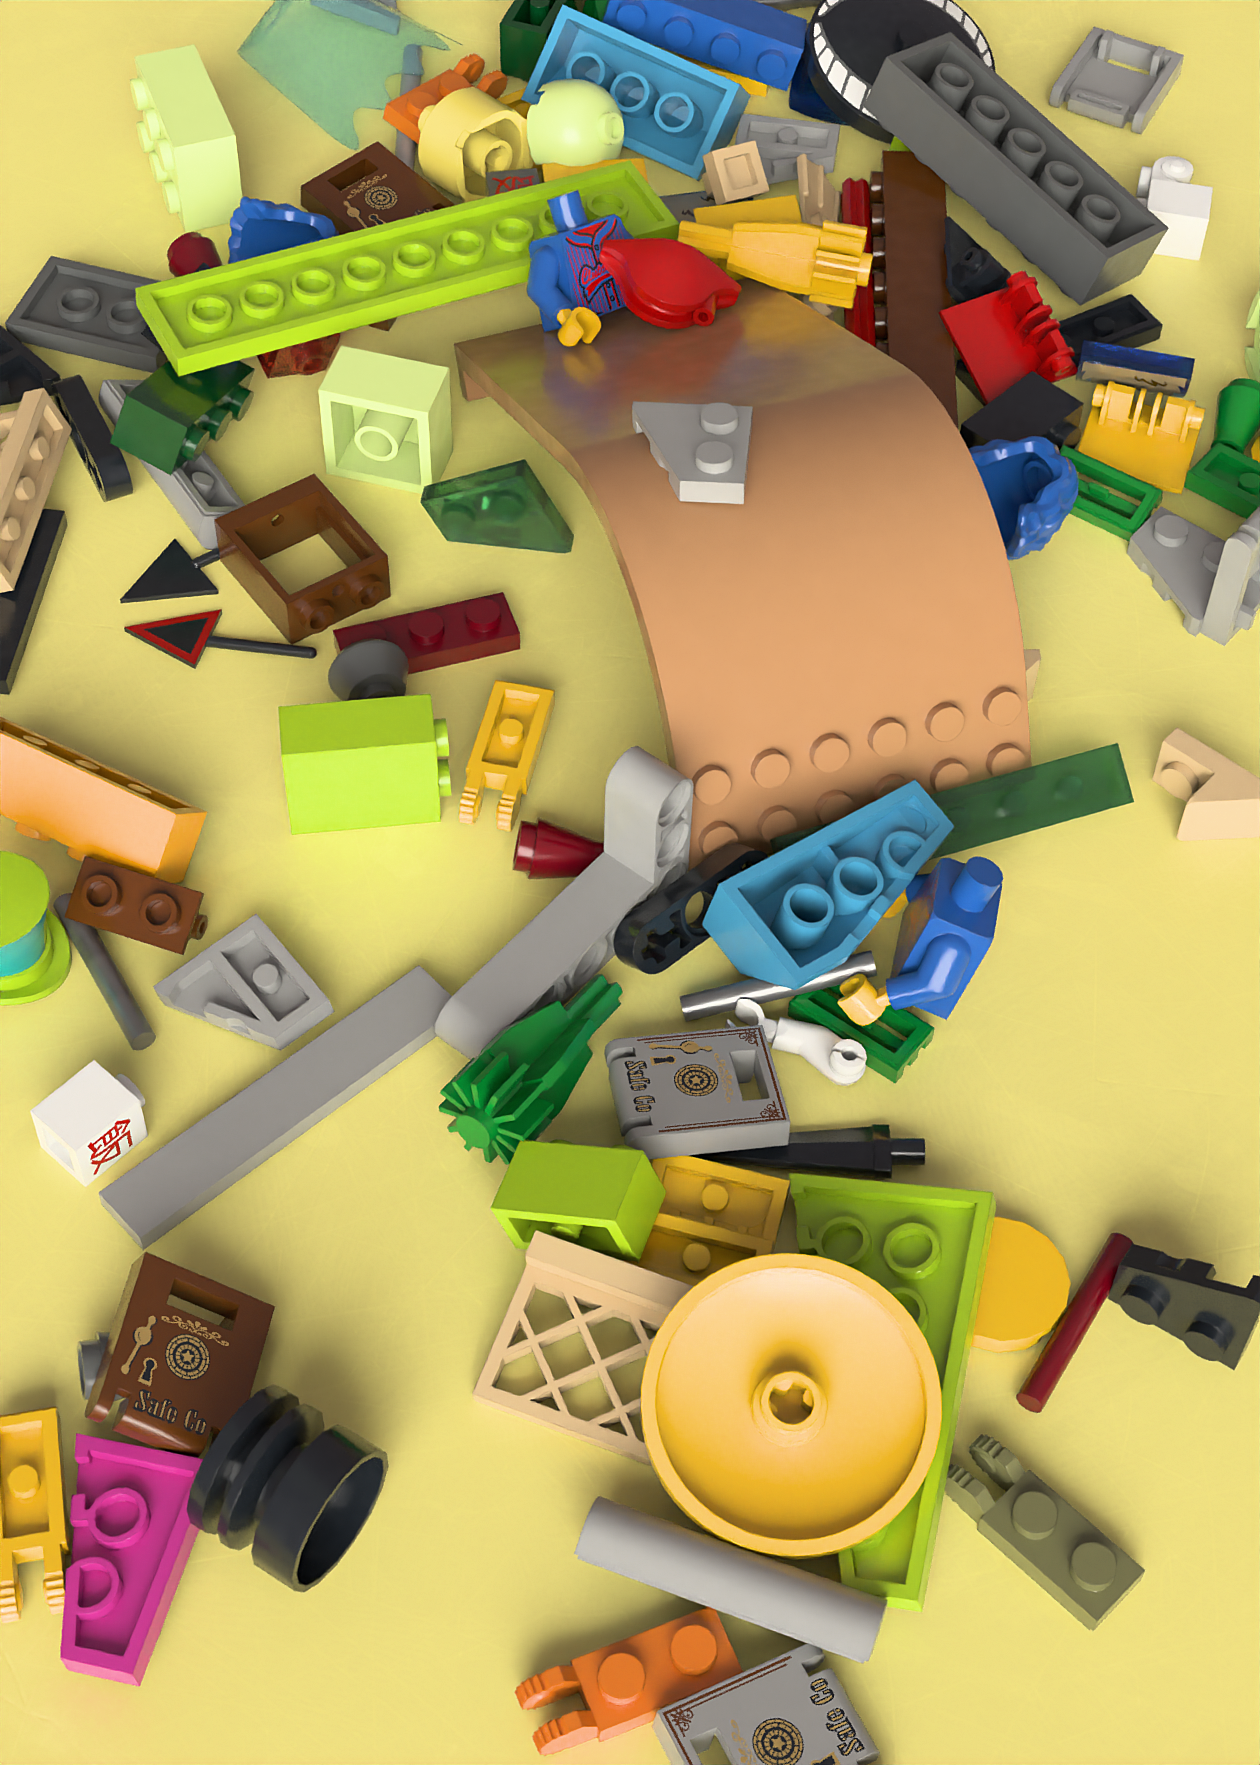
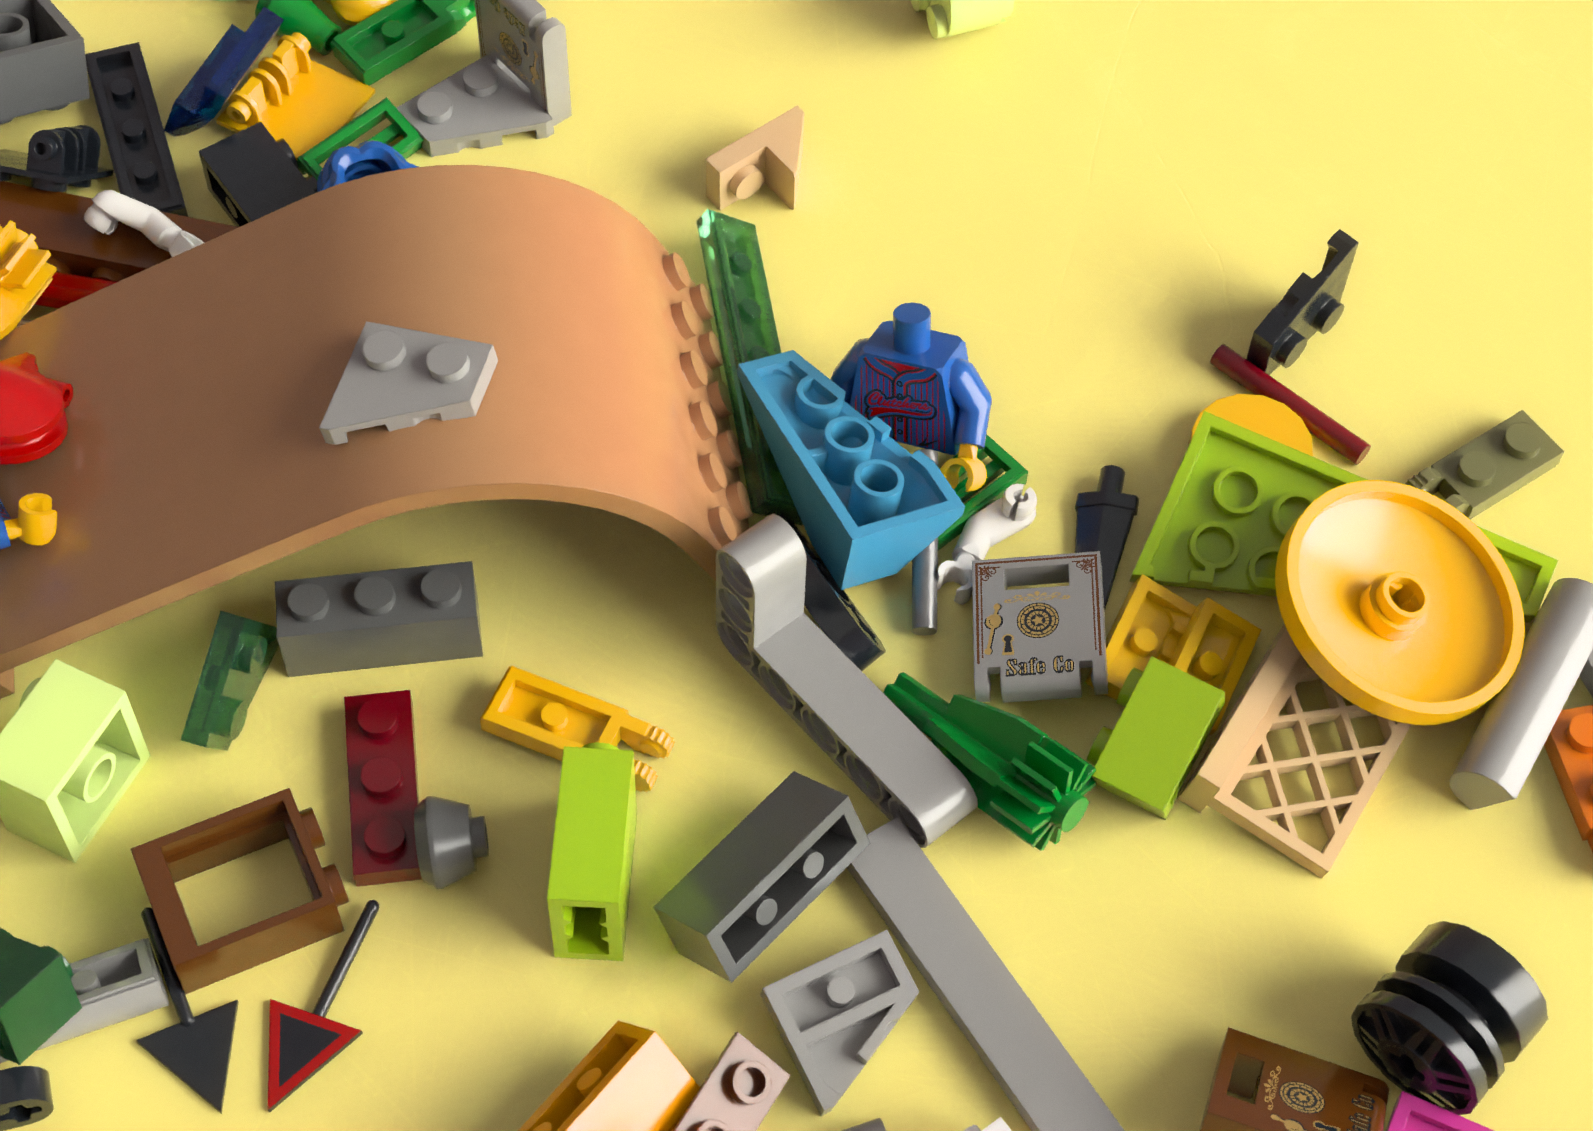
camera: 80 degrees left, 5 degrees up
(370, 898) = (762, 875): none -> dark grey brick
(553, 851) = (720, 706): dark red cone -> none
(580, 595) = (378, 619): none -> dark grey brick
(931, 337) = (112, 207): none -> white arm
(1008, 337) = (144, 157): red hinge -> none

